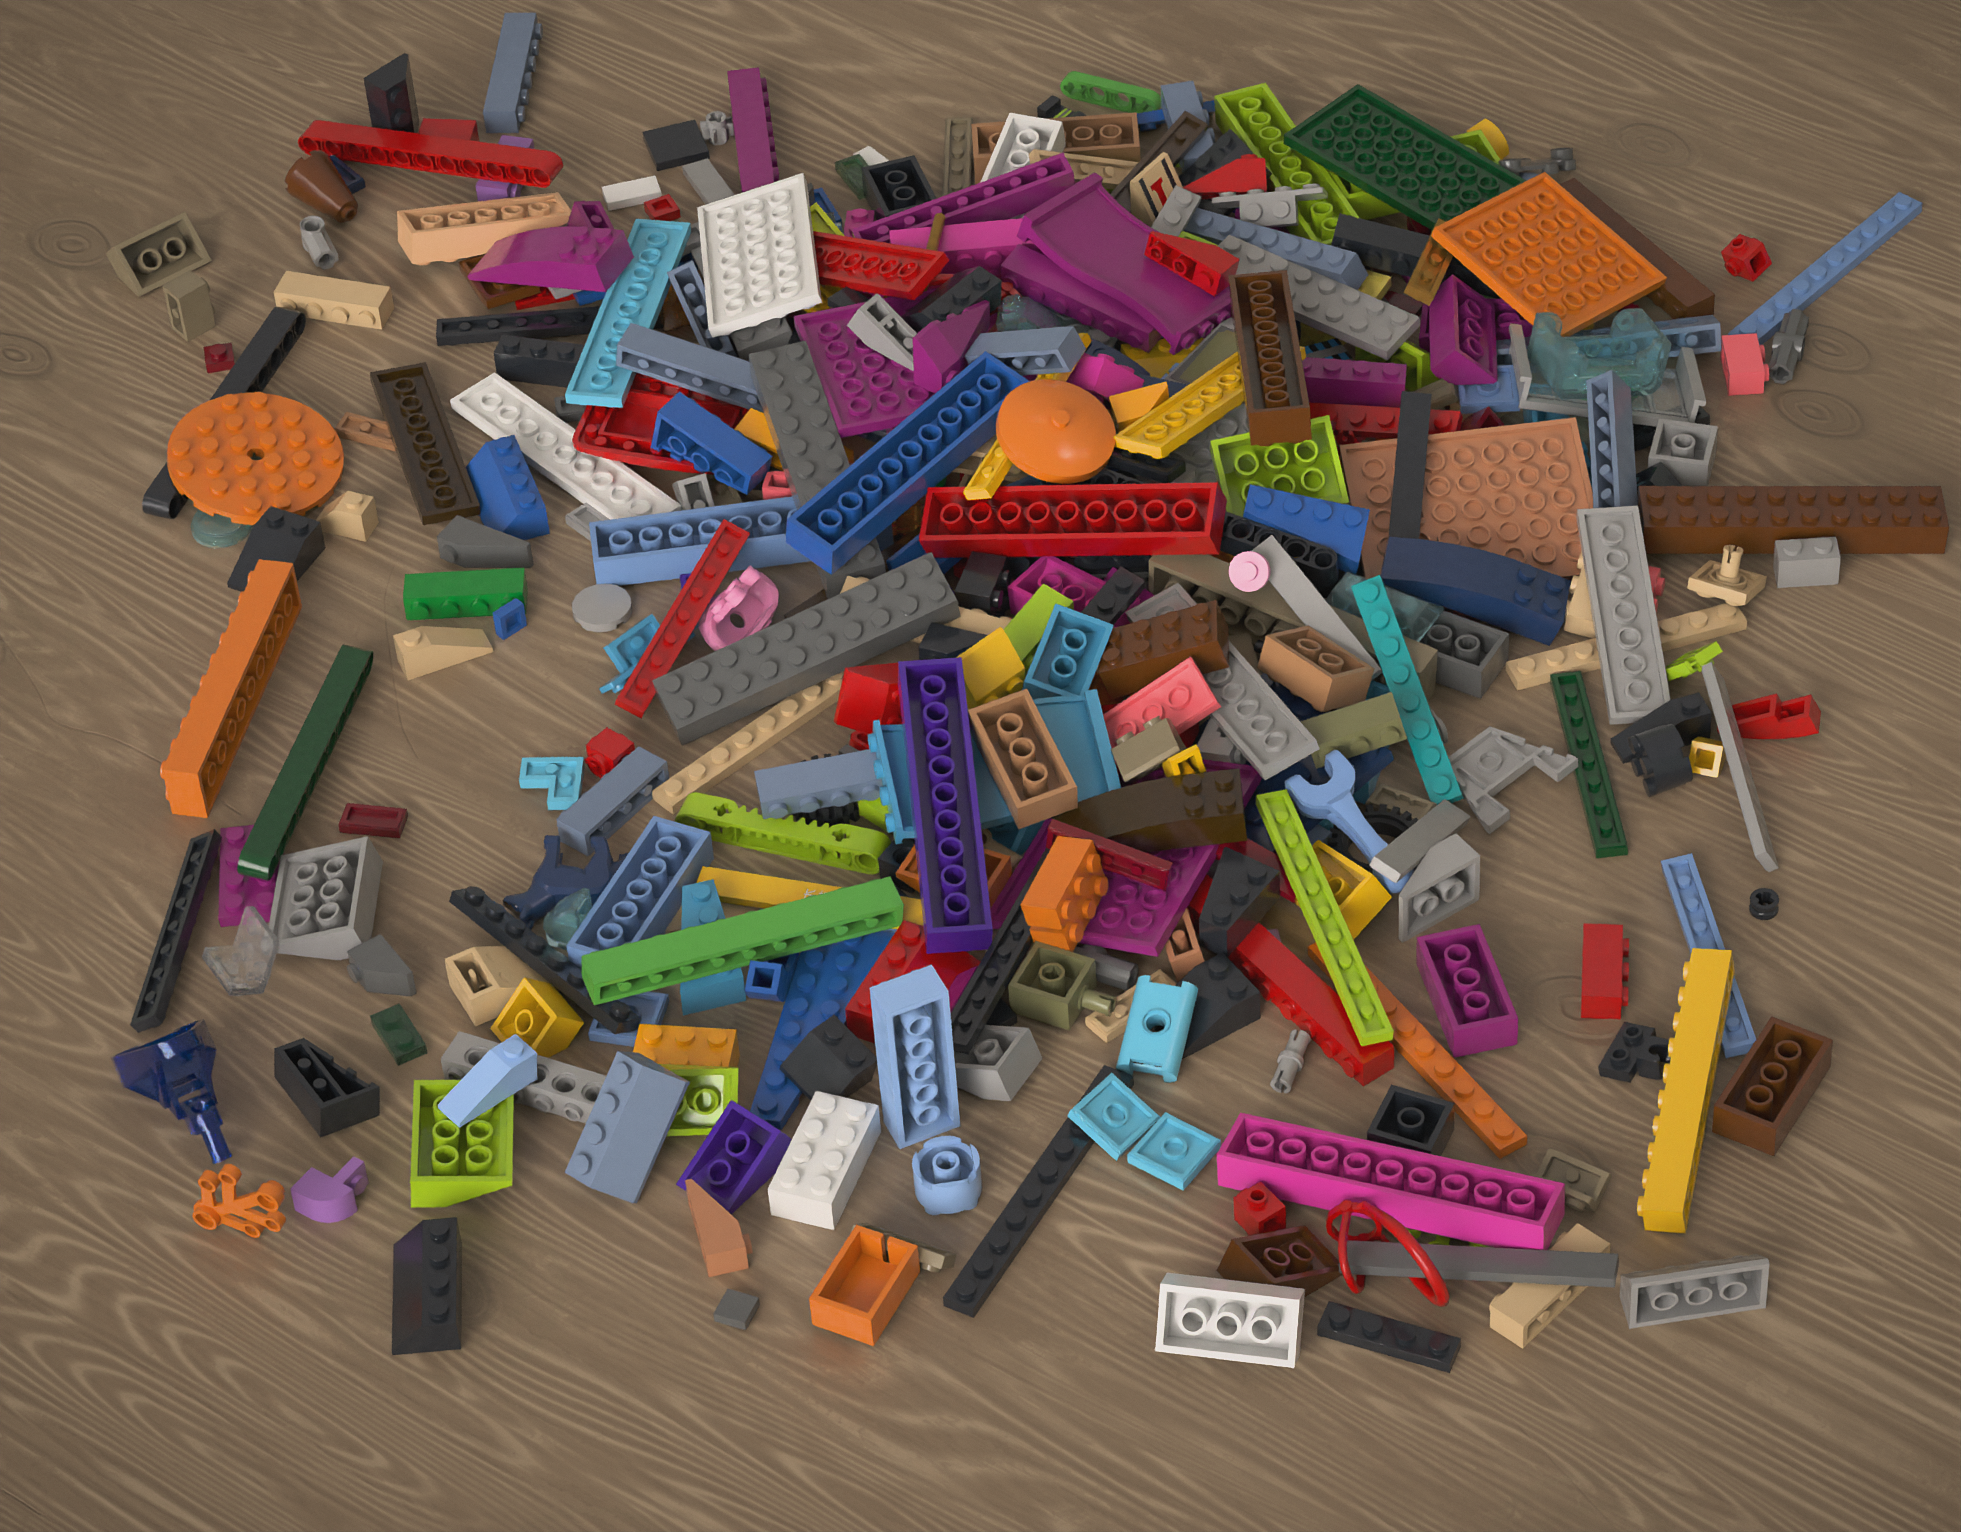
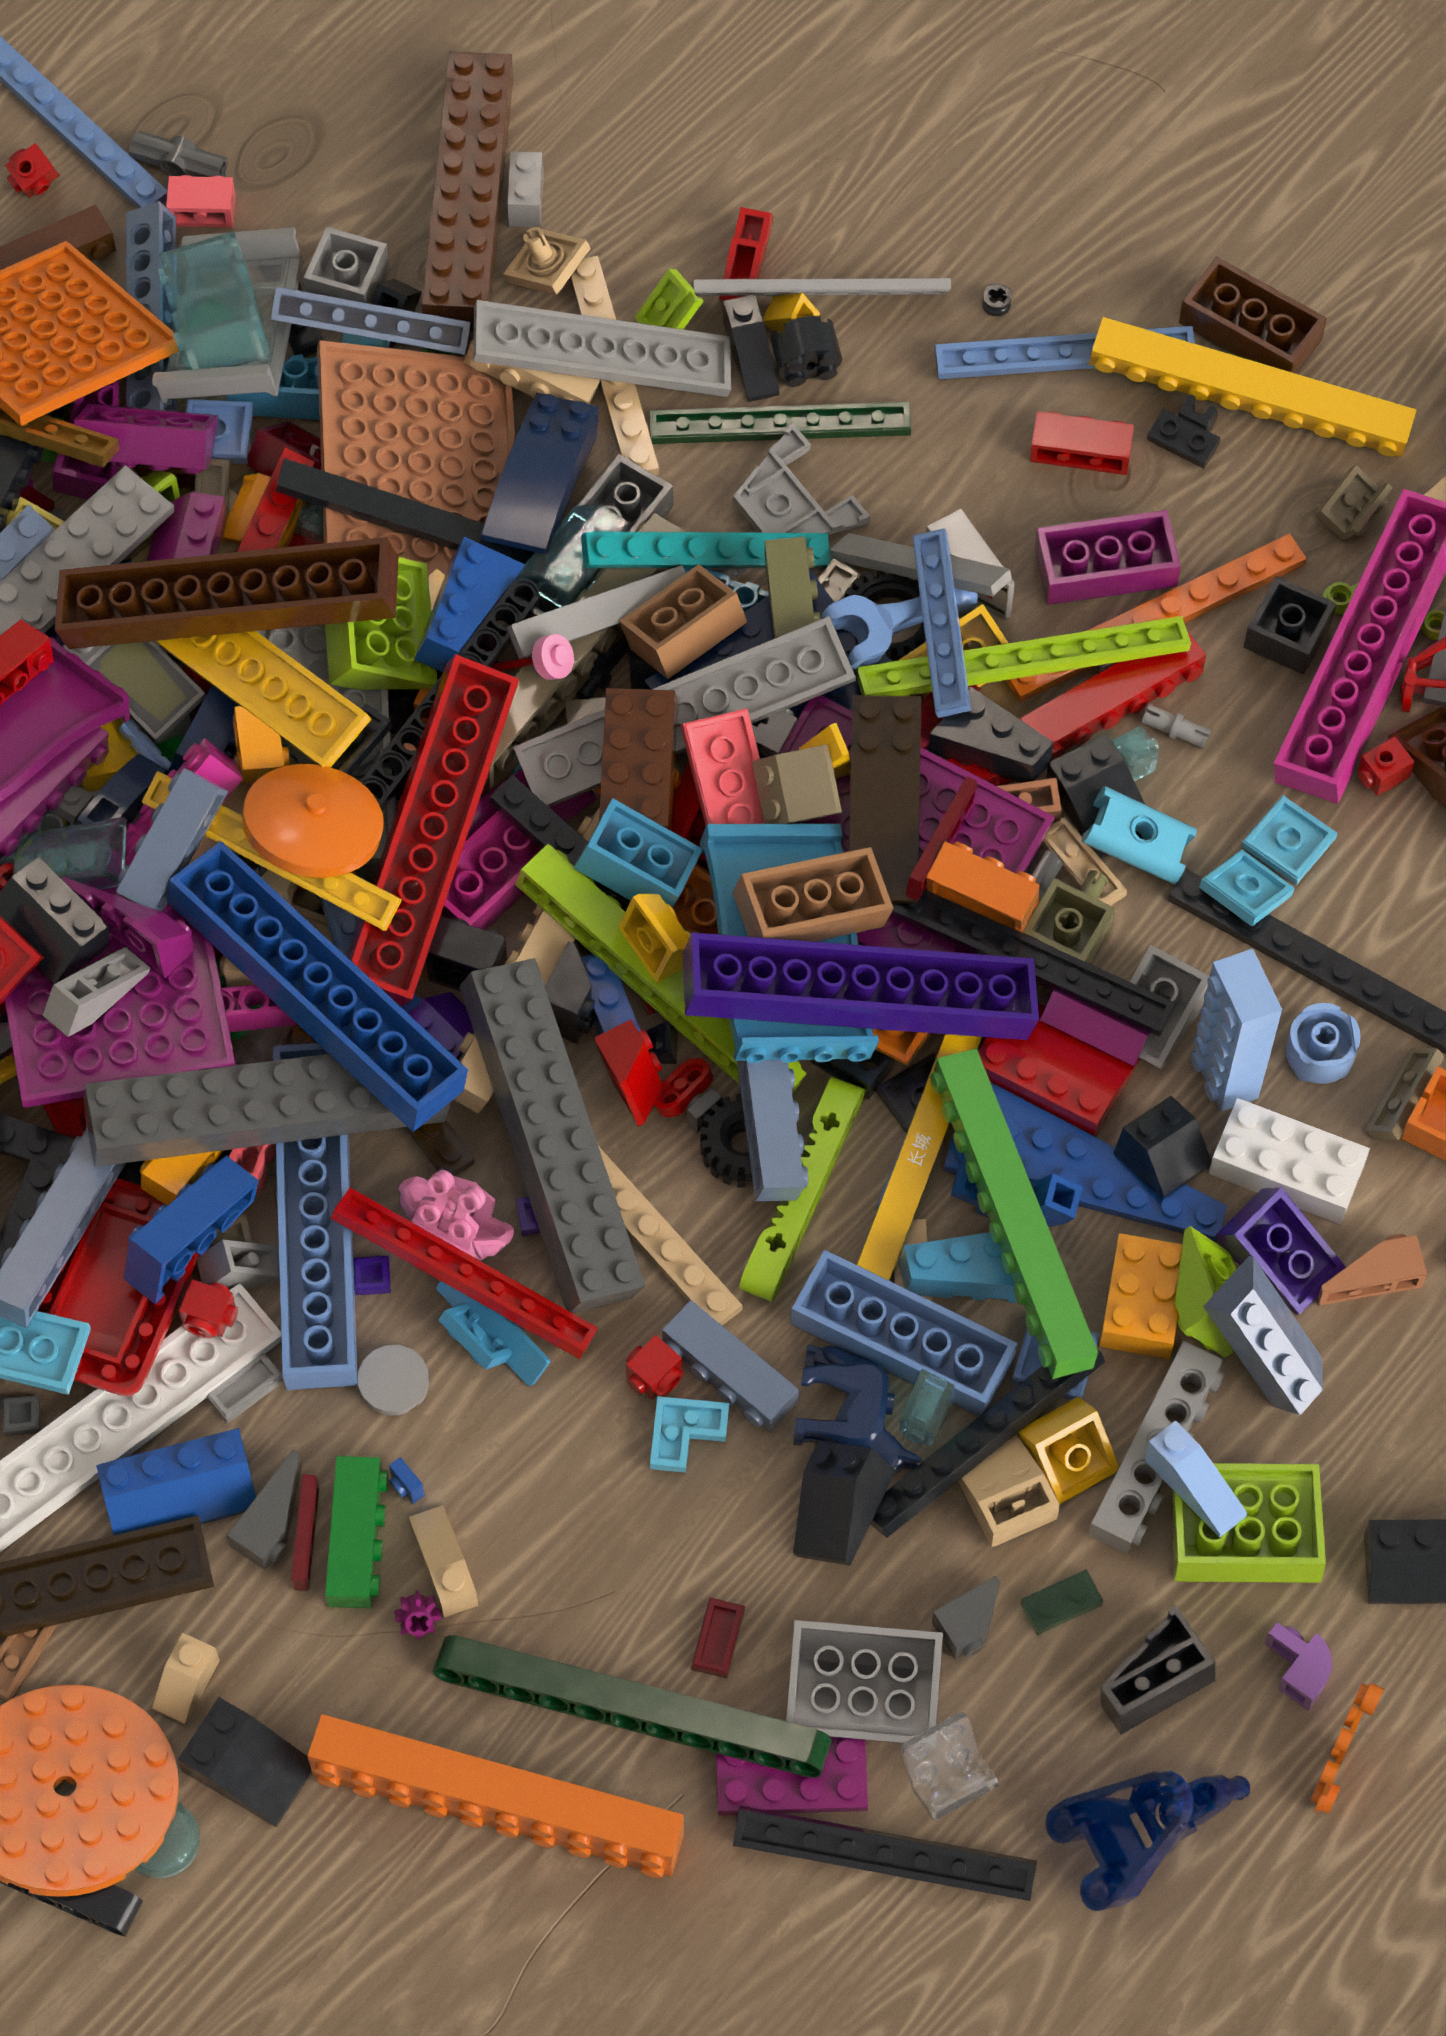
camera: 90 degrees left, 20 degrees up
(386, 629) = (417, 1614): none -> magenta gear
(464, 561) = (305, 1532): none -> dark red tile
(497, 870) = (839, 1501): none -> black slope
(649, 480) = (207, 1309): none -> red brick
(1249, 1026) = (1138, 751): none -> clear light blue brick
(1339, 837) = (941, 623): none -> medium blue tile

